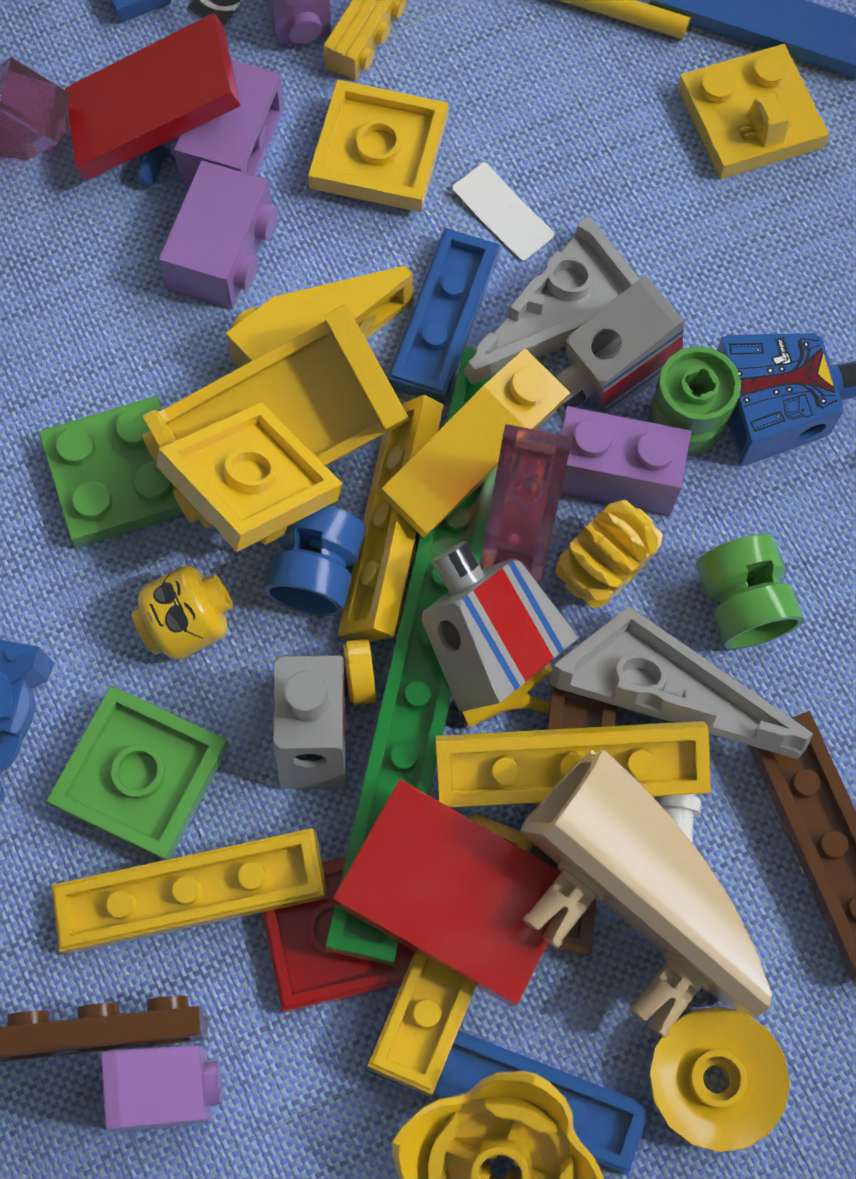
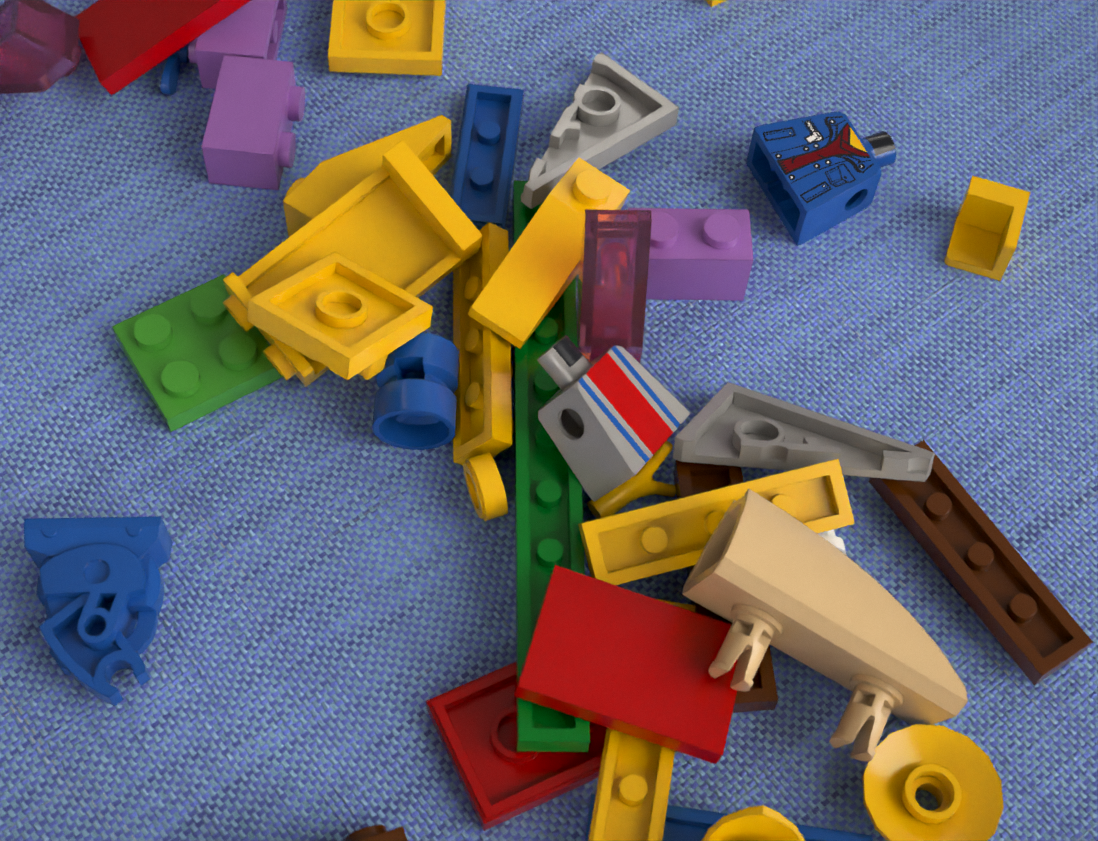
camera: 15 degrees left, 10 degrees down
(138, 773) = (285, 625): bright green plate -> none
(182, 613) = (296, 464): yellow head -> none
(188, 891) = (360, 727): yellow tile -> none
(310, 721) = (448, 526): light grey torso -> none
(503, 211) = (518, 64): white sticker -> none
(608, 553) = (698, 333): yellow gear -> none
(621, 348) = (668, 149): light grey torso -> none
(696, 394) = (745, 175): bright green wheel -> none
(749, 591) = (835, 340): bright green wheel -> none

